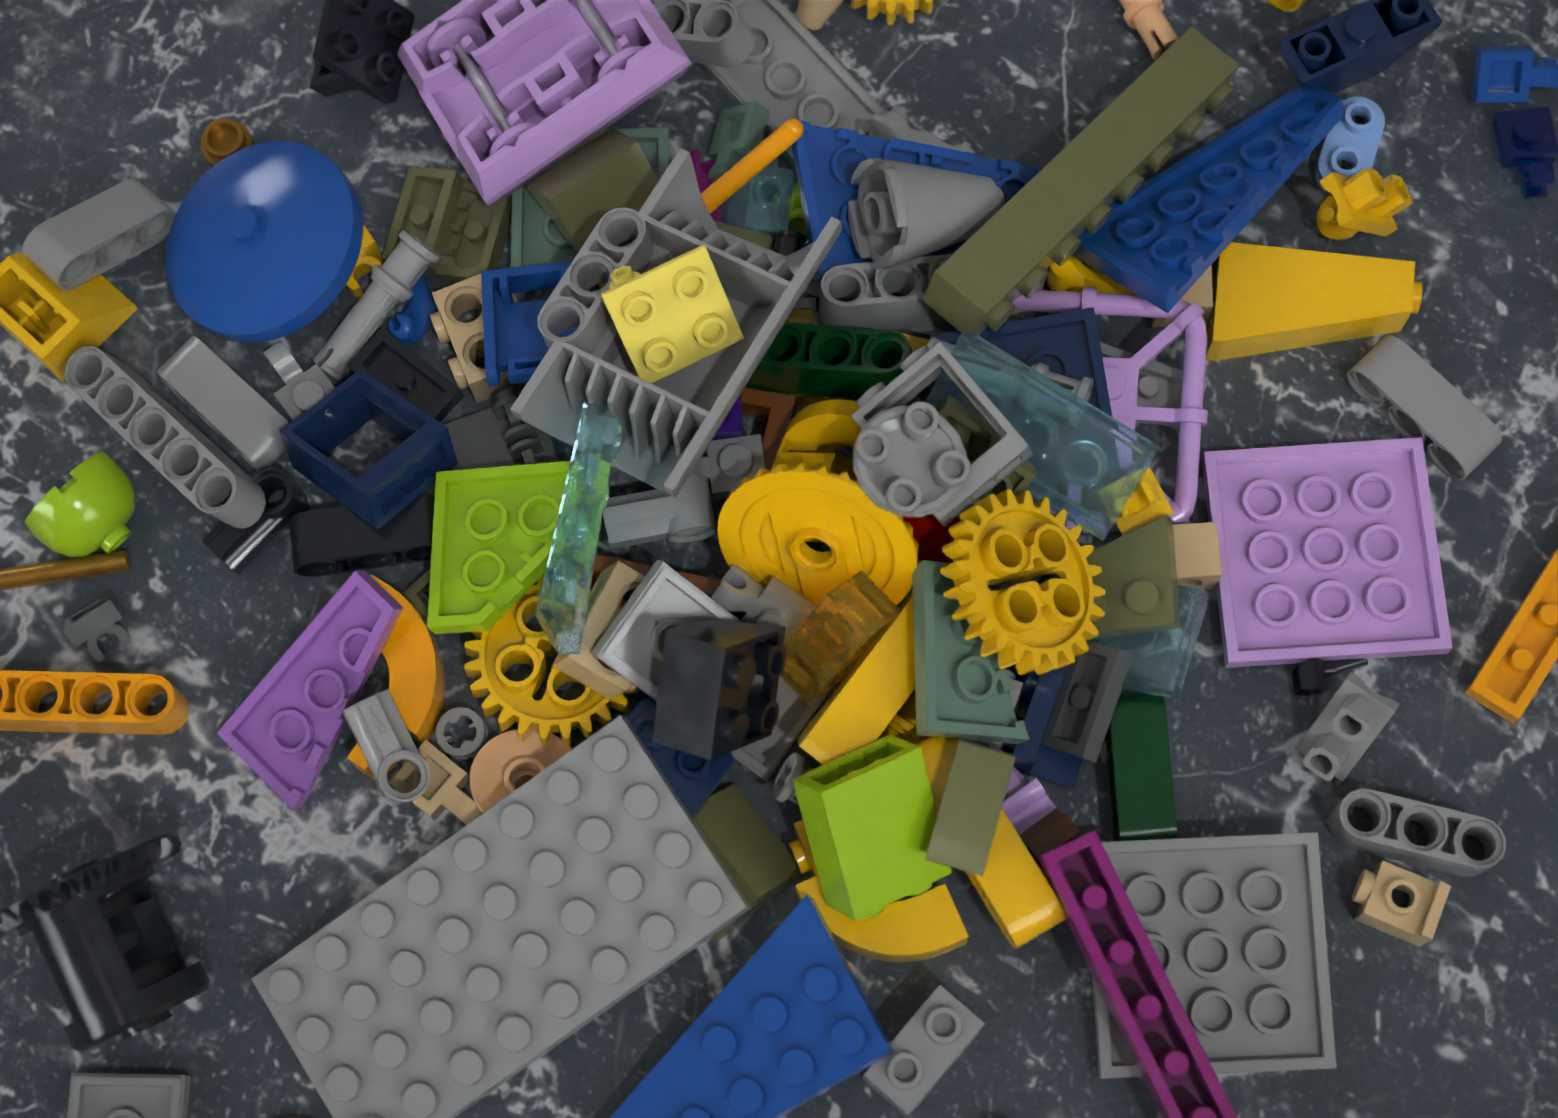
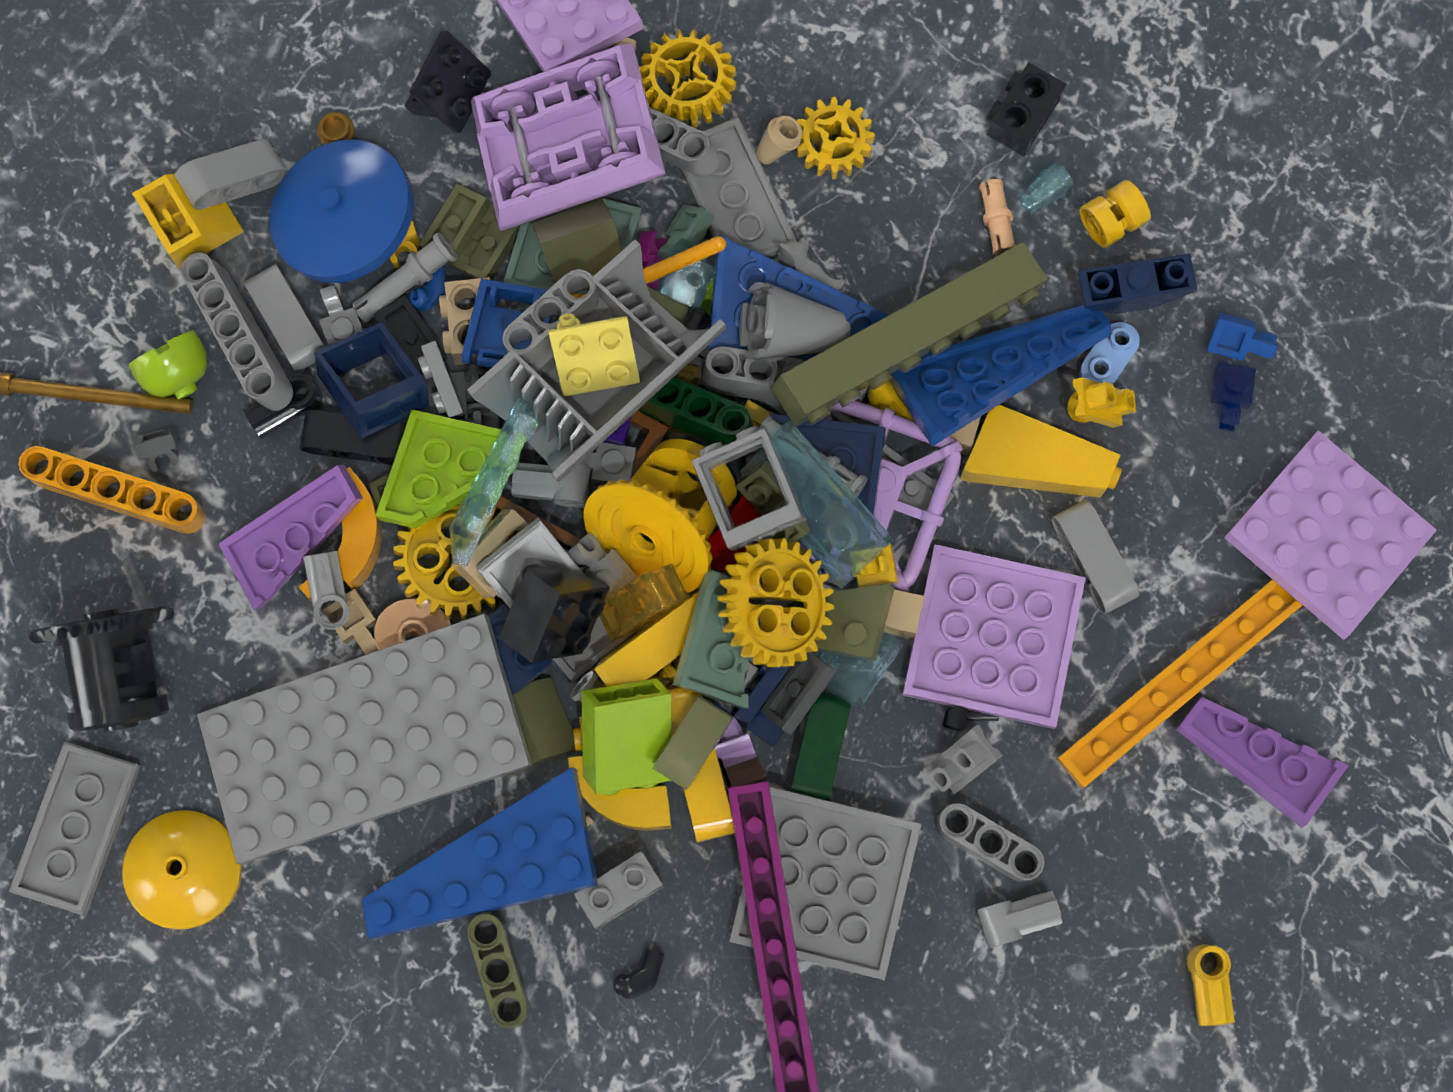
camera: 10 degrees right, 5 degrees up
(450, 406) = (433, 366): none -> light grey plate
(456, 718) = (380, 579): light grey bush -> none
(910, 460) = (719, 503): light grey dish -> none
(1376, 909) = (965, 900): tan brick -> none
(1484, 931) = (1011, 920): none -> light grey piece

